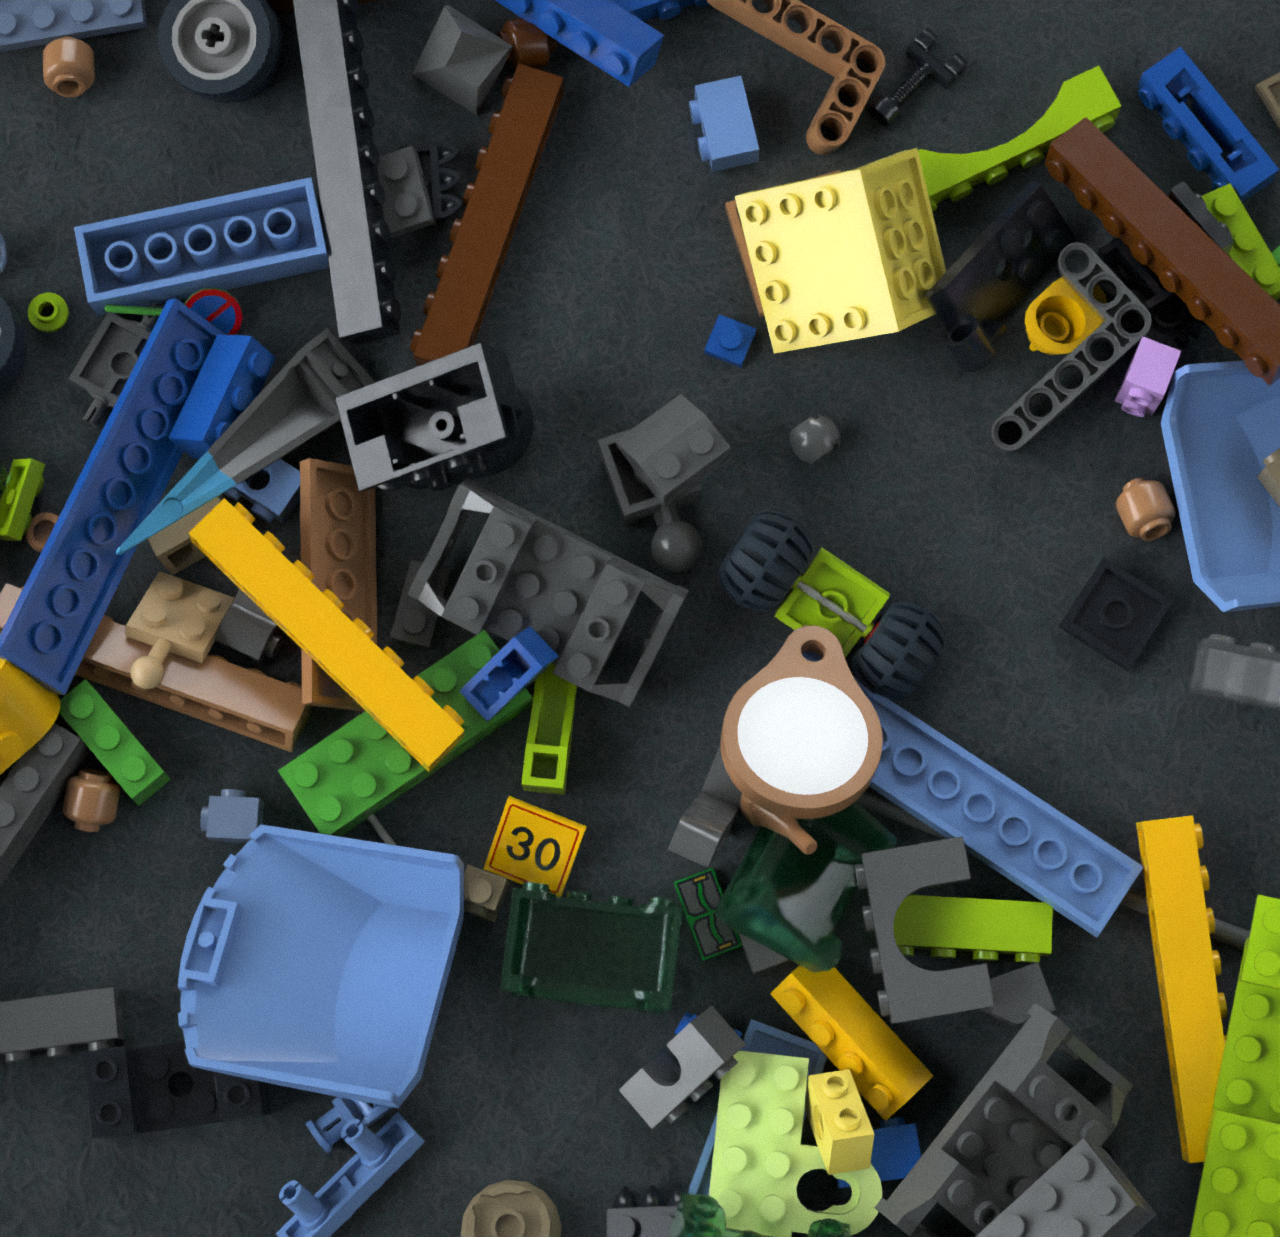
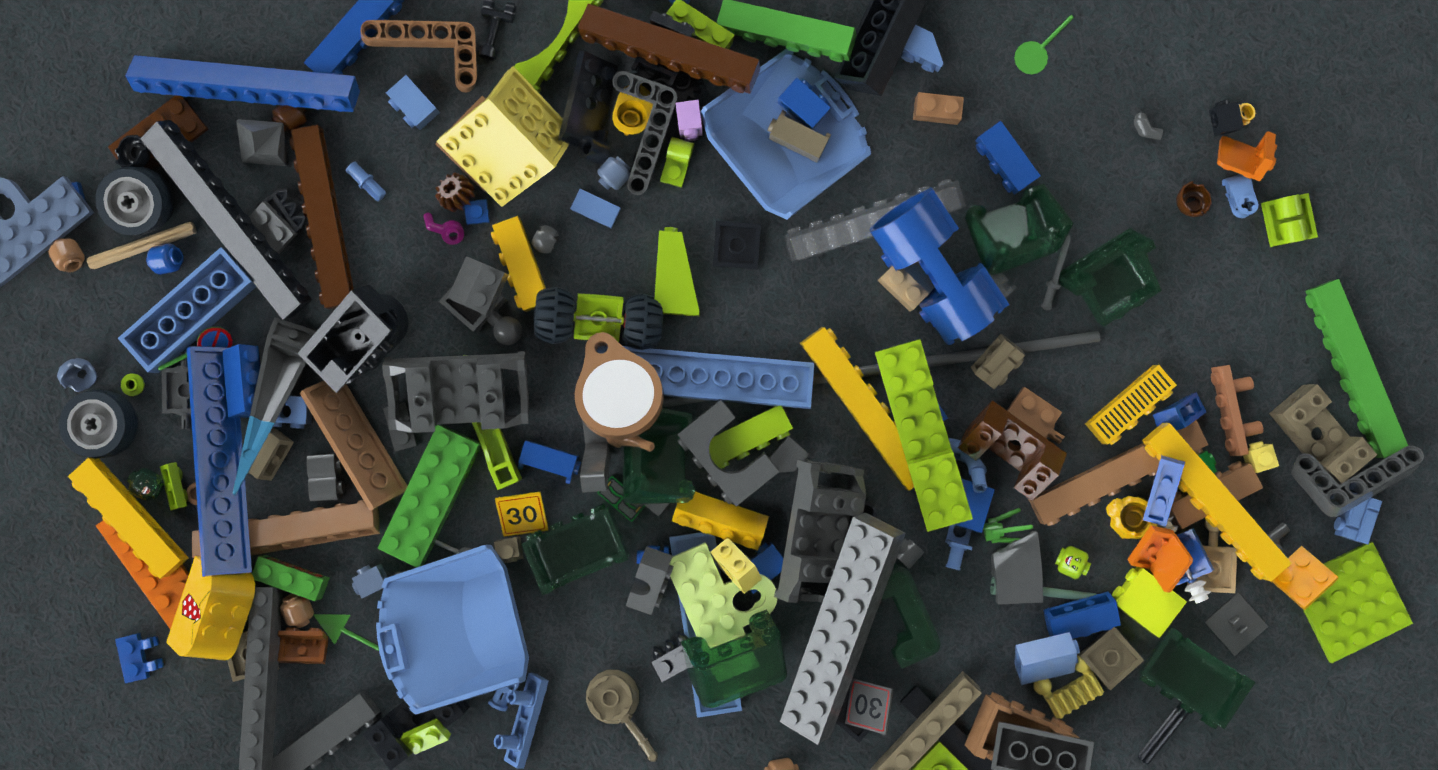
camera: 30 degrees left, 10 degrees up
(66, 861) = (302, 646): none -> dark orange bracket
(132, 860) = (334, 625): none -> bright green piece
(174, 619) = (283, 502): tan plate -> none
(178, 1116) = (425, 736): none -> lime plate
(188, 114) = (141, 245): none -> tan axle
(211, 151) = (164, 258): none -> blue head
(327, 634) = (360, 473): yellow brick -> none
(508, 673) = (460, 441): blue arch -> none
(585, 202) = (365, 181): none -> medium blue axle
(628, 786) = (549, 459): none -> blue brick
(667, 340) = (445, 229): none -> magenta plate
(715, 291) = (455, 192): none -> reddish brown gear
(756, 450) = (520, 261): none -> yellow brick
(920, 436) = (595, 208): none -> medium blue tile
(980, 396) = (613, 173): none -> sand blue head
(988, 607) = (673, 276): none -> lime slope
(1090, 433) = (677, 162): none -> lime plate
(1145, 509) = (723, 185): medium nougat head -> none

